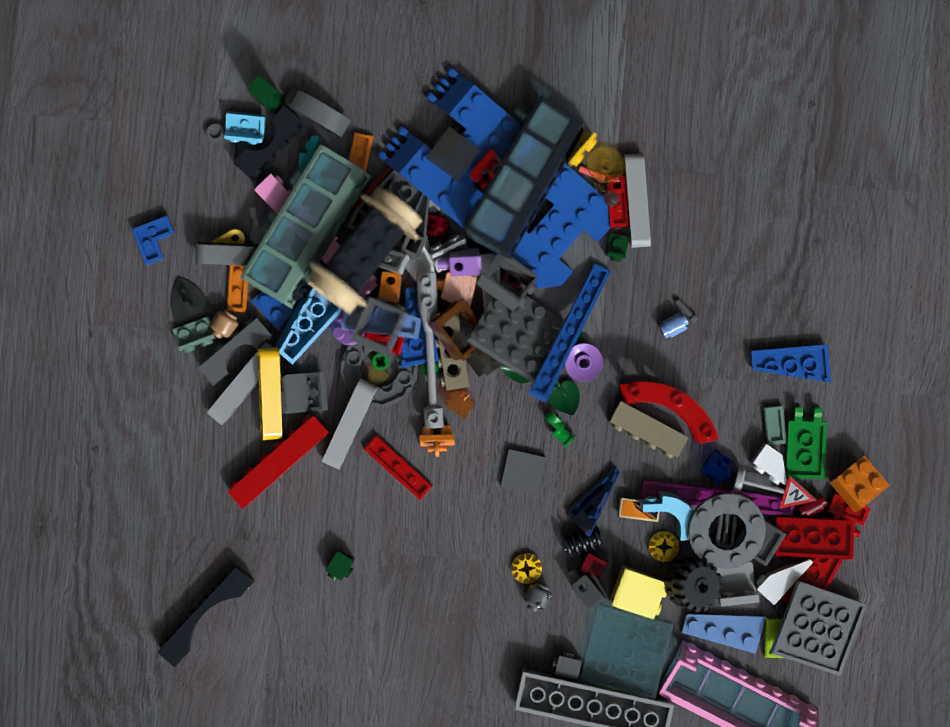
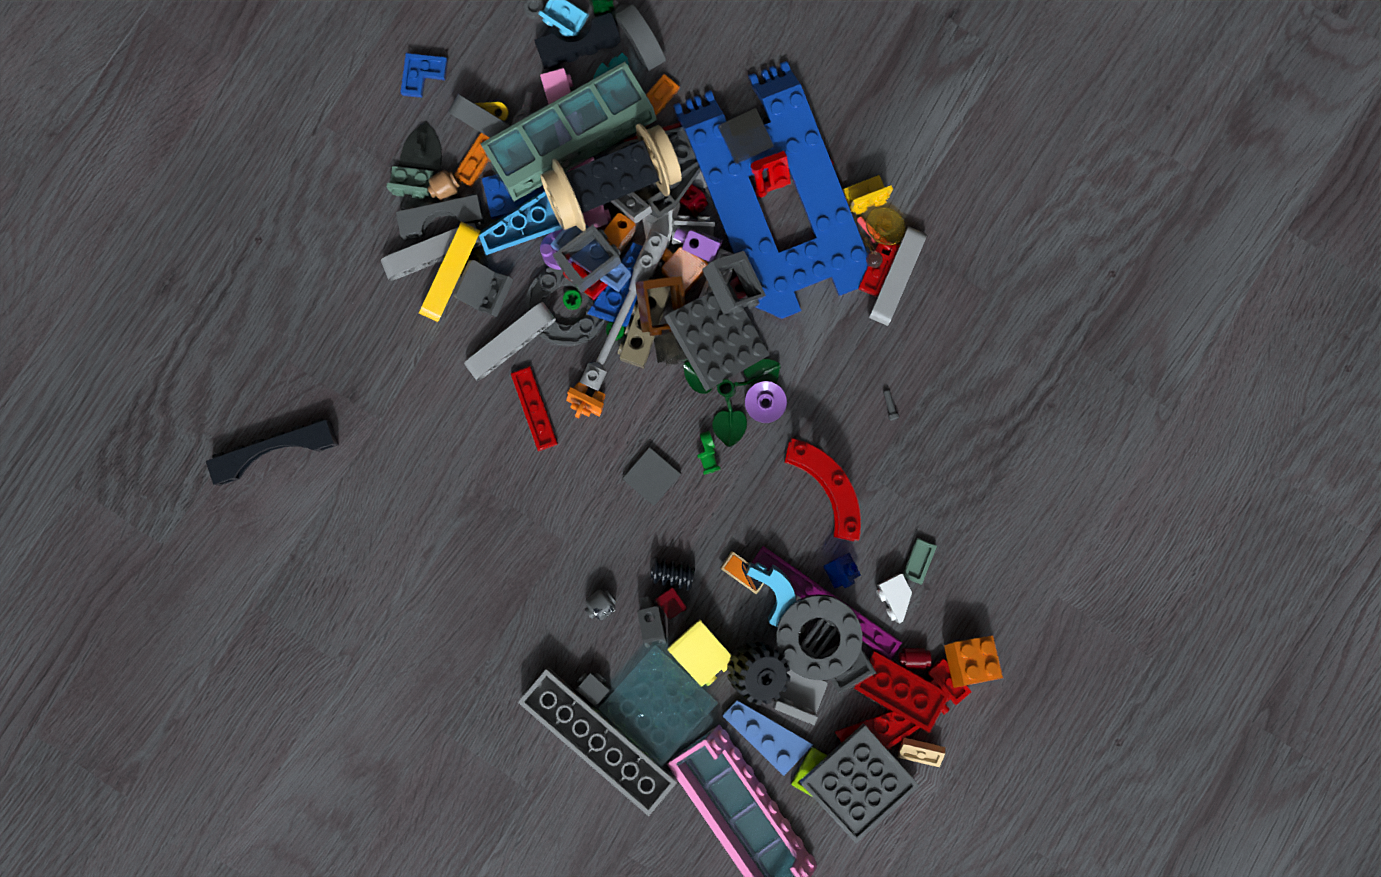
camera: 25 degrees right, 5 degrees down
(278, 462) = (422, 342): red brick -> none
(301, 291) = (530, 189): black plant -> none
(340, 566) = (426, 473): dark green brick -> none
(376, 376) = (561, 312): clear yellow tile -> none
(460, 403) = (626, 378): clear orange brick -> none
(524, 177) = (801, 193): window -> none
(531, 560) = (613, 567): yellow gear -> none
(569, 332) = (766, 363): blue tile -> none
(590, 505) = (696, 544): dark blue wing -> none
(617, 247) = (855, 310): dark green bracket -> none
(644, 427) = (794, 499): dark tan brick -> none
(658, 539) = (746, 612): yellow gear -> none
(674, 325) = (871, 412): medium blue brick -> none
(778, 582) = (844, 716): white slope -> none
(792, 495) = (903, 635): light grey piece -> none
(799, 362) = (971, 510): blue wing -> none
(806, 445) = (939, 597): green tile -> none
(855, 577) = (921, 752): none -> tan plate

